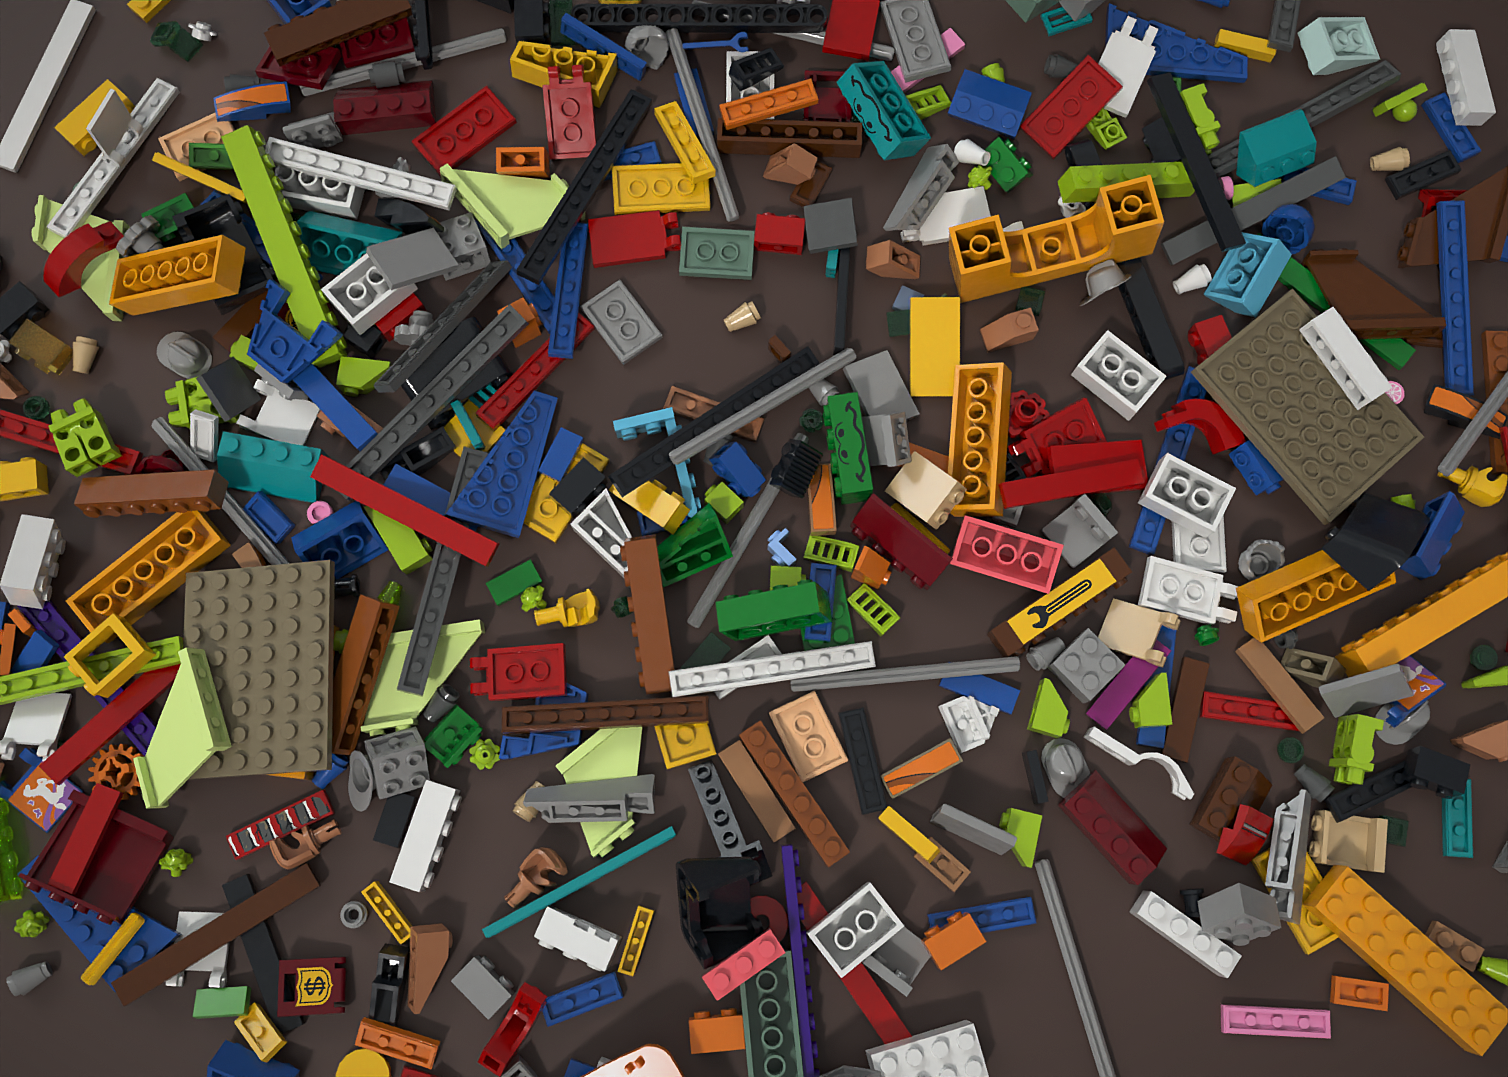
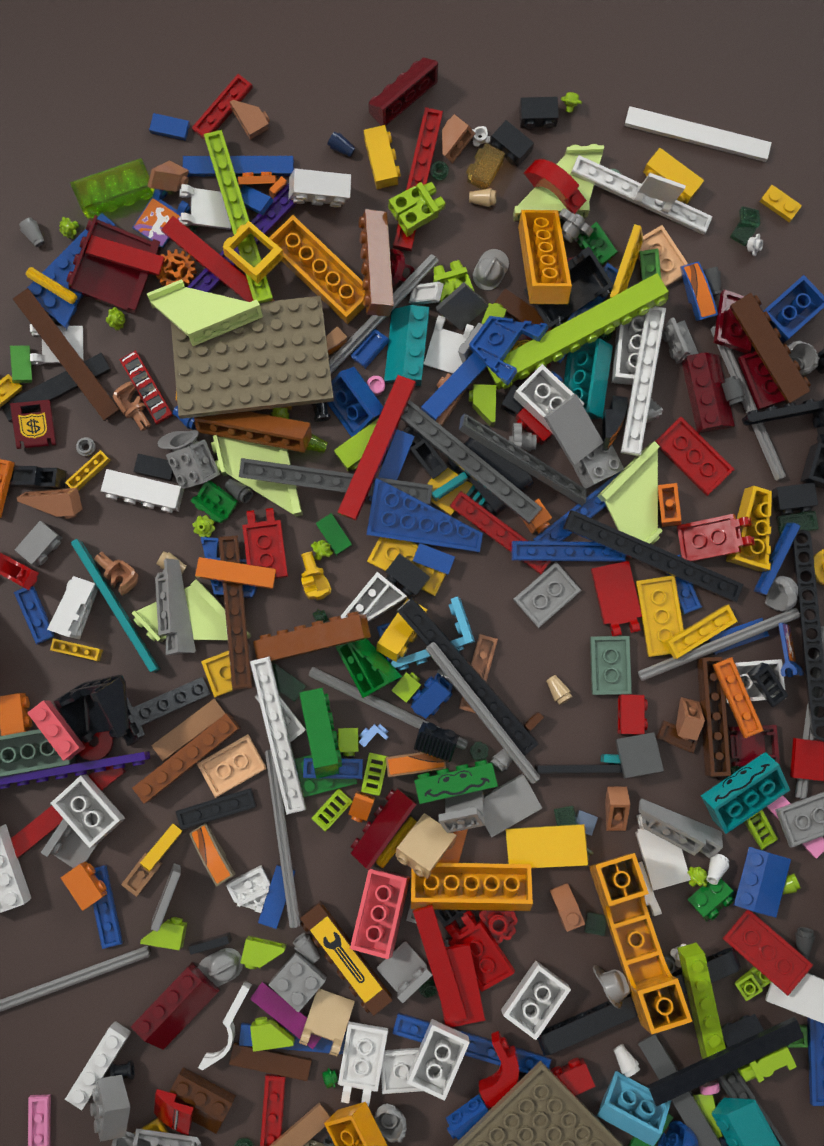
camera: 85 degrees right, 5 degrees up
(552, 709) = (235, 573): none -> orange tile

